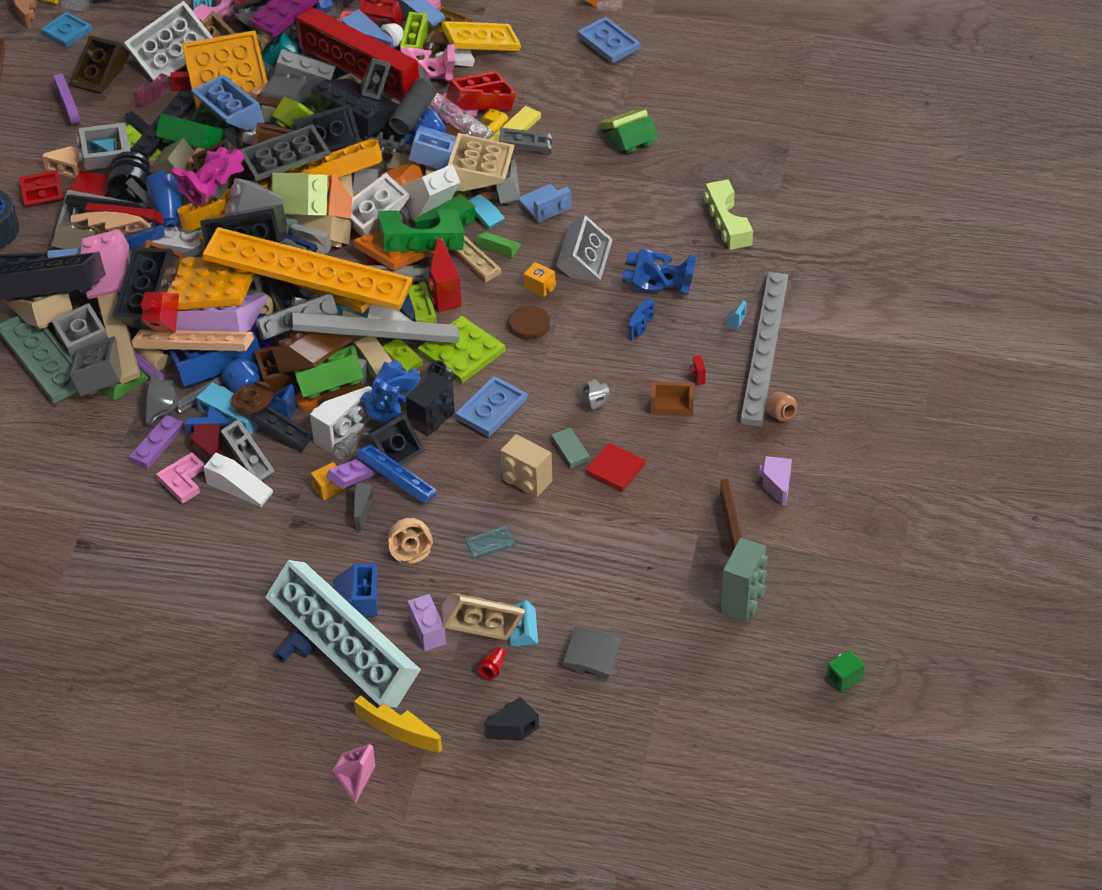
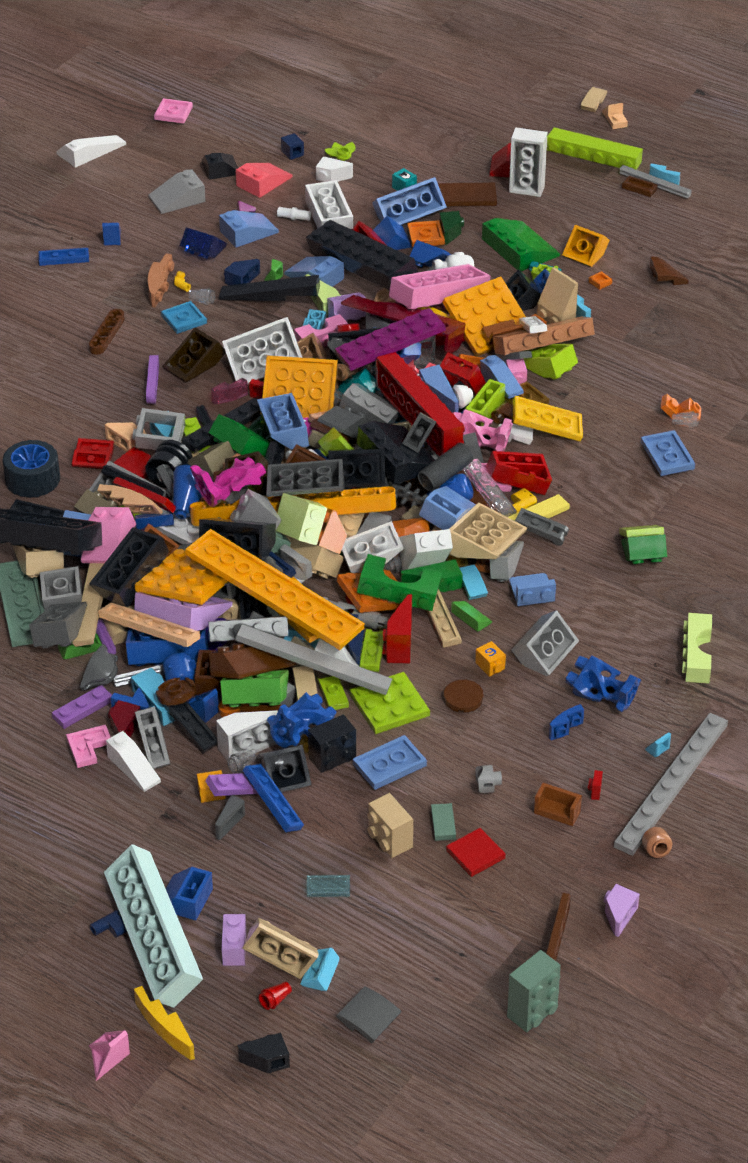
camera: 20 degrees right, 5 degrees down
(160, 311) = (128, 590): red torso -> none
(409, 540) = (254, 861): light nougat cylinder -> none
(441, 369) = (357, 718): black wheel -> none
(845, 670) = (593, 1107): green brick -> none

